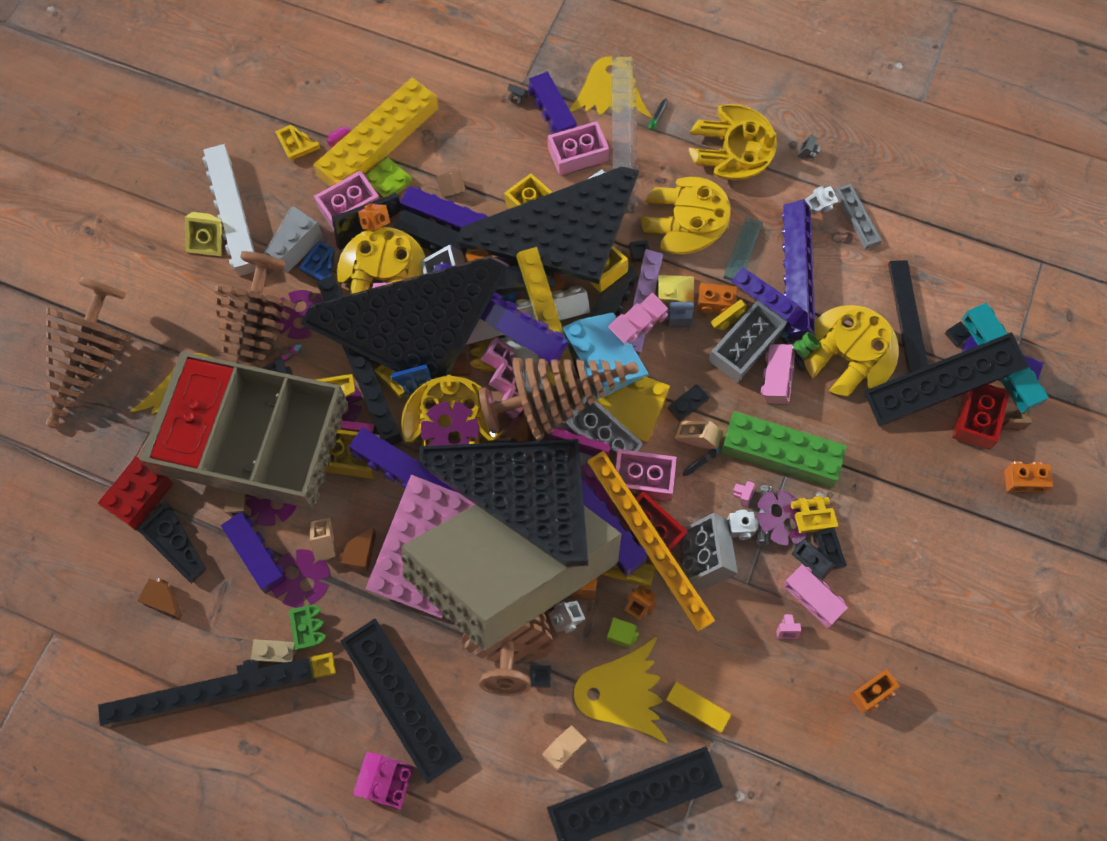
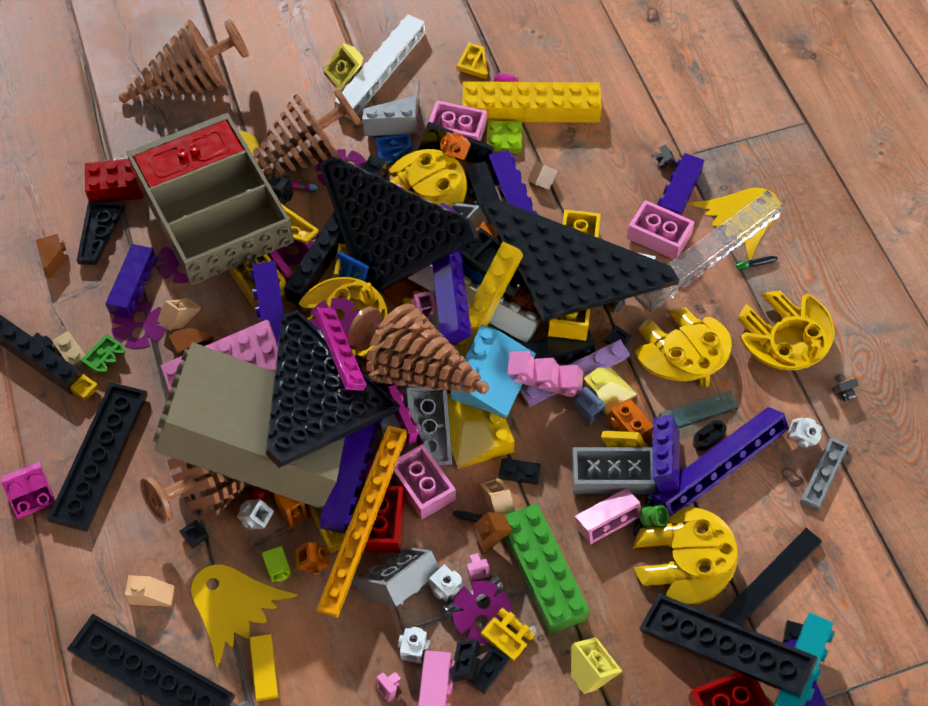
camera: 50 degrees right, 10 degrees down
(236, 503) = (155, 241): medium nougat panel -> none
(489, 442) = (340, 349): none -> dark pink plate
(729, 460) = (491, 530): none -> dark orange slope
(764, 258) = (711, 438): none -> black beam
(772, 585) = (413, 644): none -> white brick
(885, 478) = (591, 665): none -> light yellow slope

